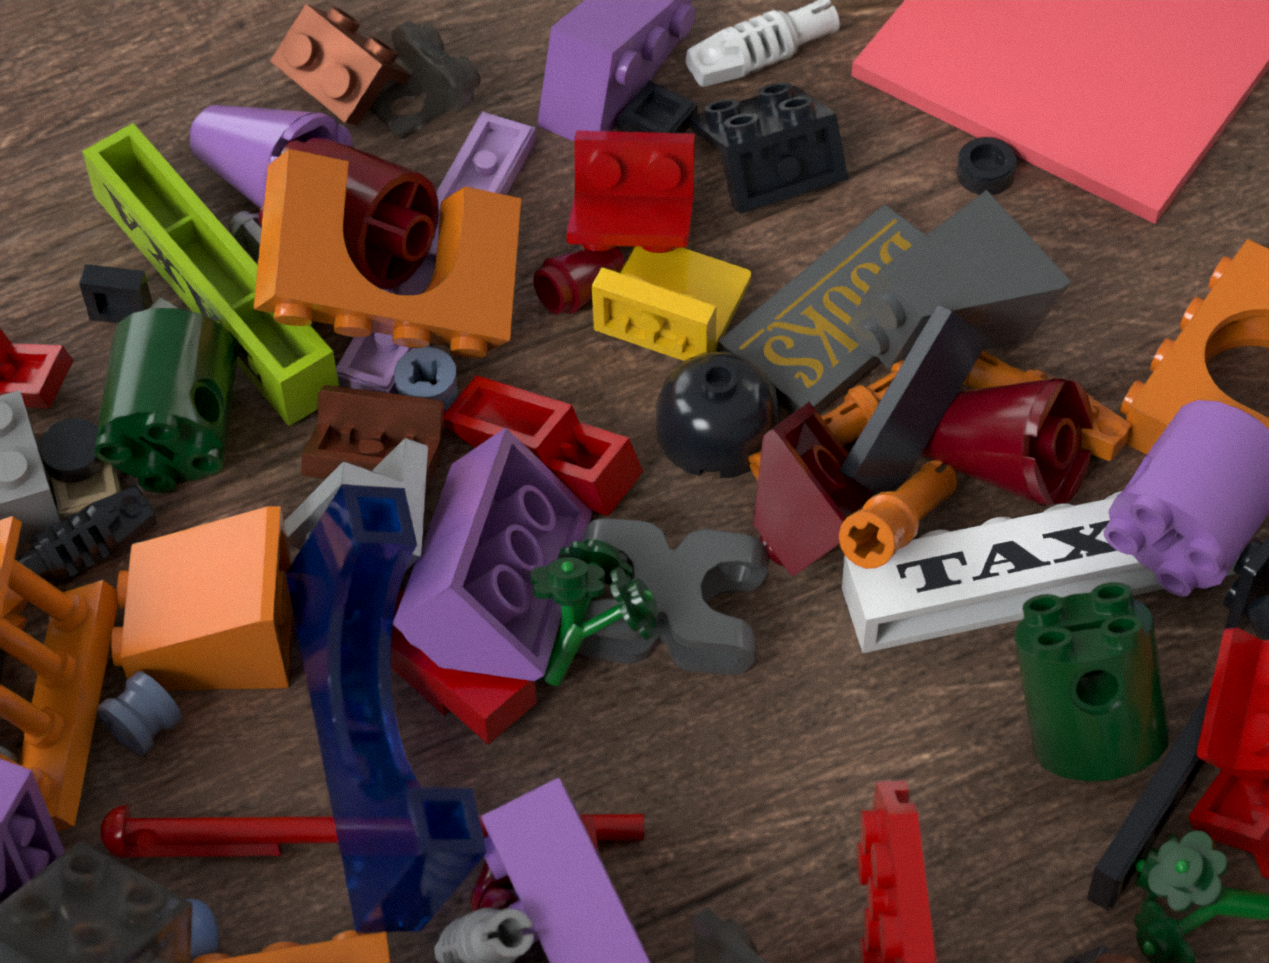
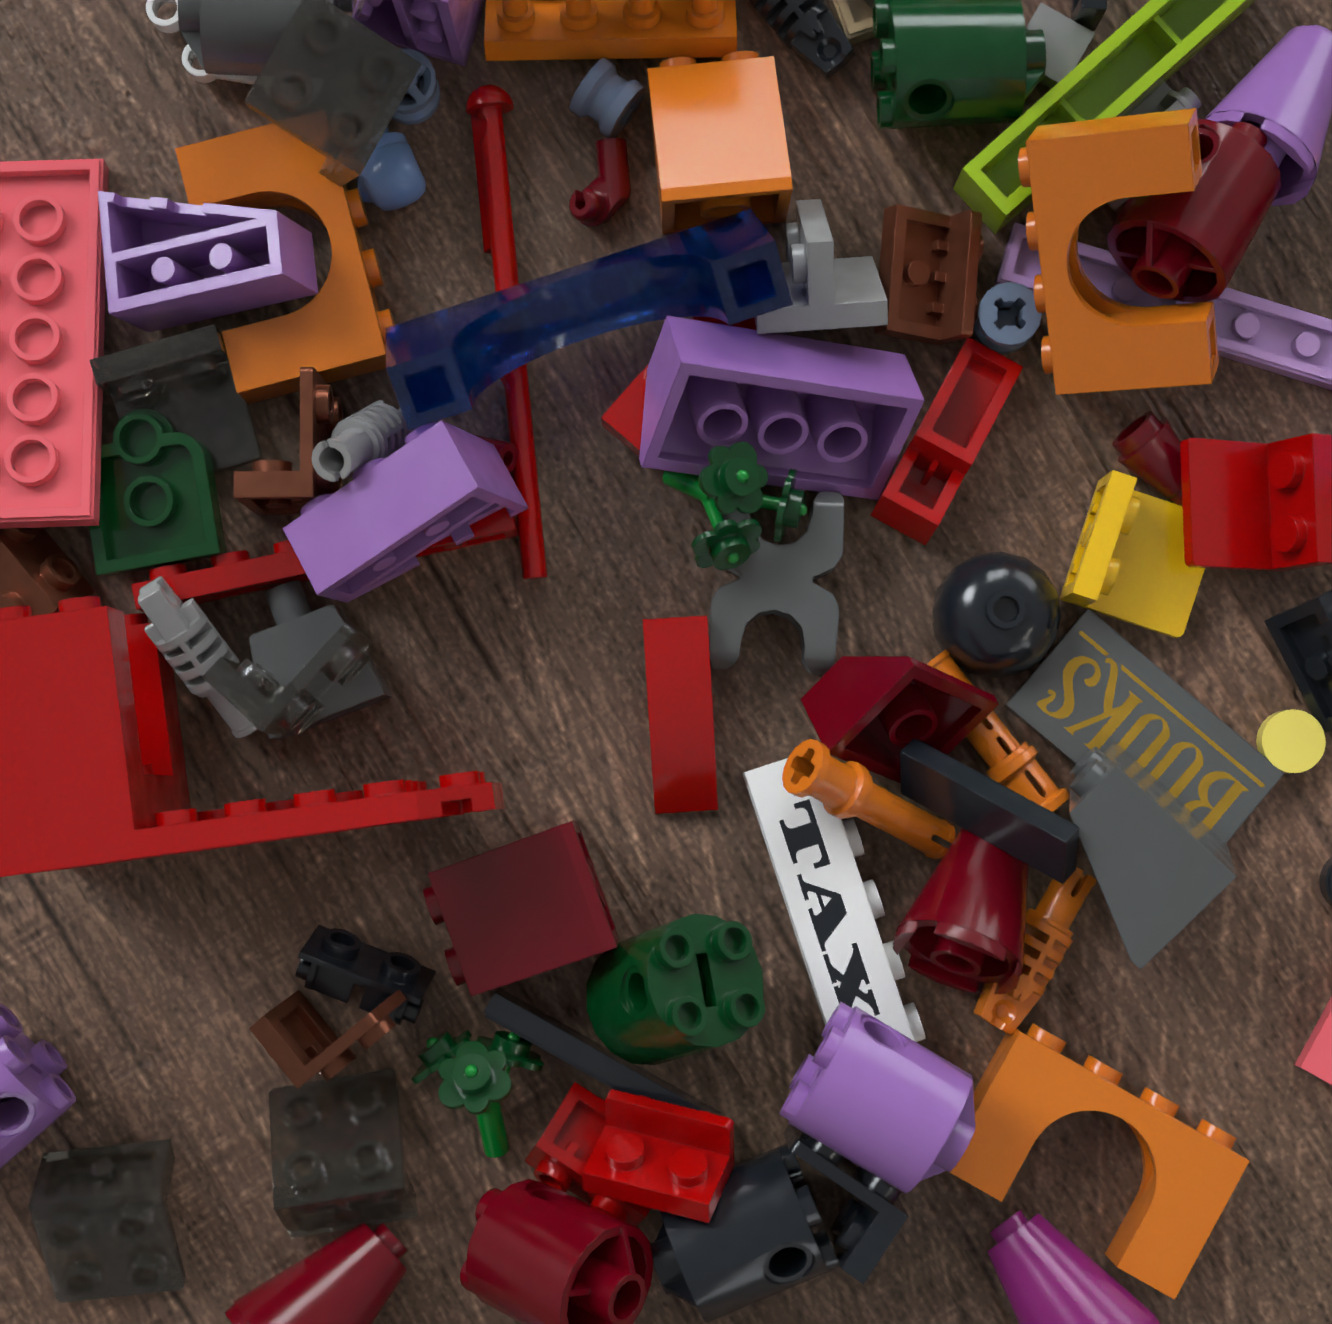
camera: 85 degrees right, 30 degrees up
(234, 727) = (608, 190): none -> dark red arm
(799, 688) = (680, 714): none -> red slope
(852, 199) = (1291, 740): none -> light yellow tile
(1003, 836) = (521, 909): none -> dark red slope

